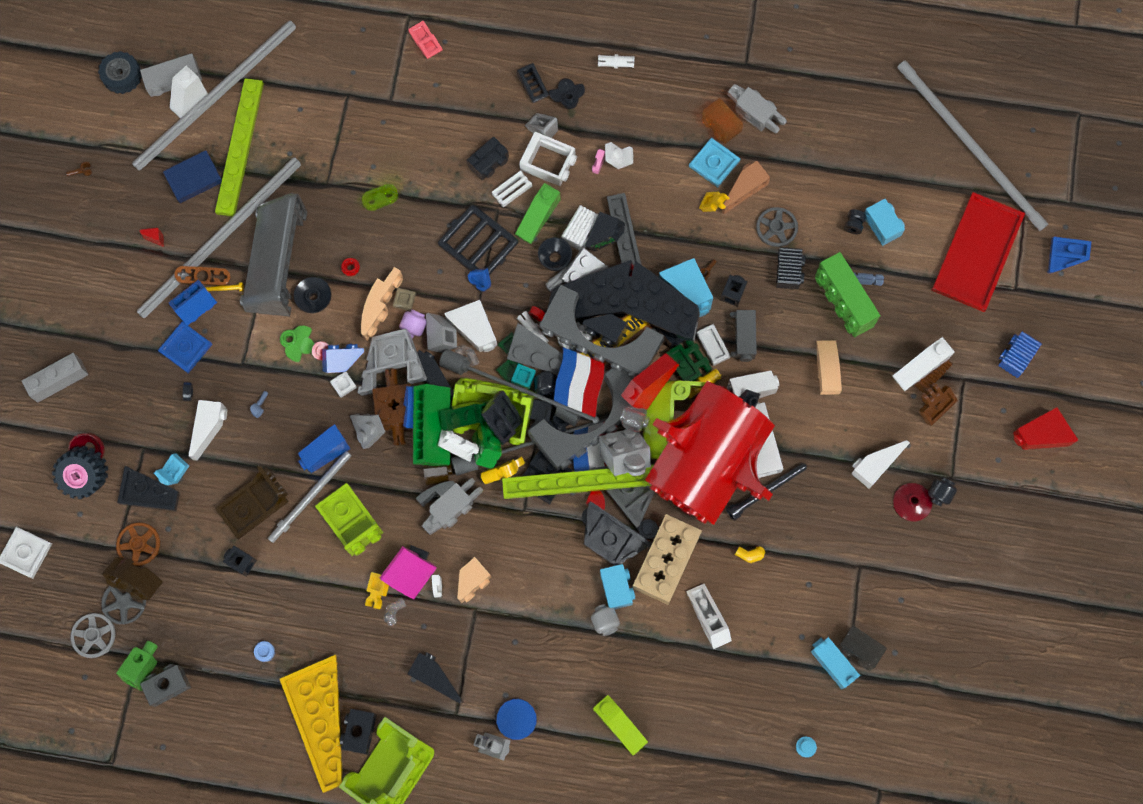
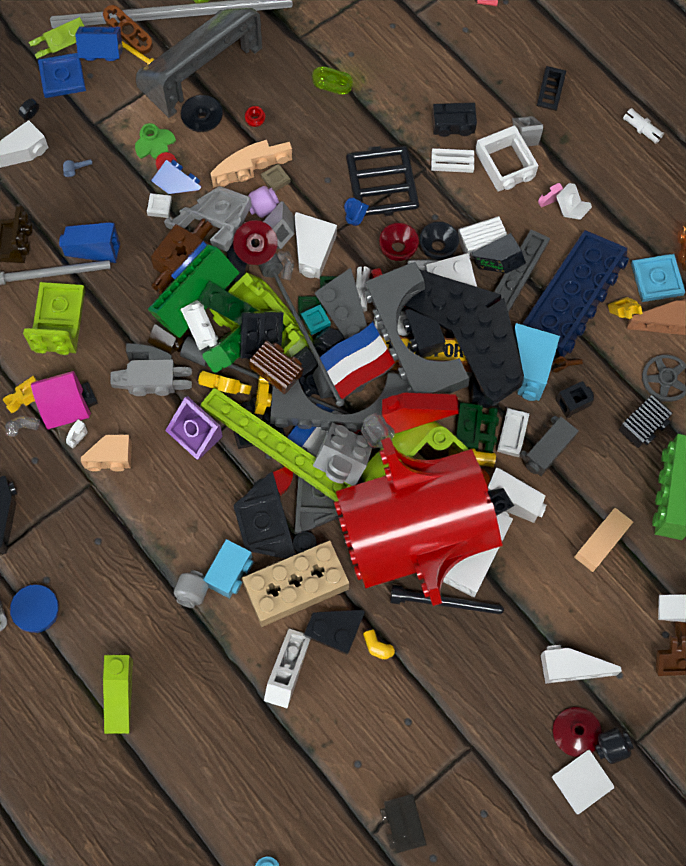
camera: 35 degrees right, 5 degrees down
(158, 321) = (58, 37): none -> lime hinge
(368, 428) = (141, 256): light grey wing -> none
(449, 358) = (255, 230): none -> dark red dish
(510, 516) = (194, 428): none -> medium lavender slope
(525, 269) = (401, 234): none -> dark red piece
(534, 430) = (276, 366): none -> reddish brown brick
(538, 213) = (458, 196): bright green slope -> none
(538, 457) = (263, 398): none -> yellow plate
(567, 93) = (574, 120): black plate -> none
(671, 214) = (578, 289): none -> dark blue bracket
(715, 566) = (334, 628): none -> black wing
(834, 662) = (365, 814): medium azure brick -> none
(942, 529) = (583, 782): none -> white sticker

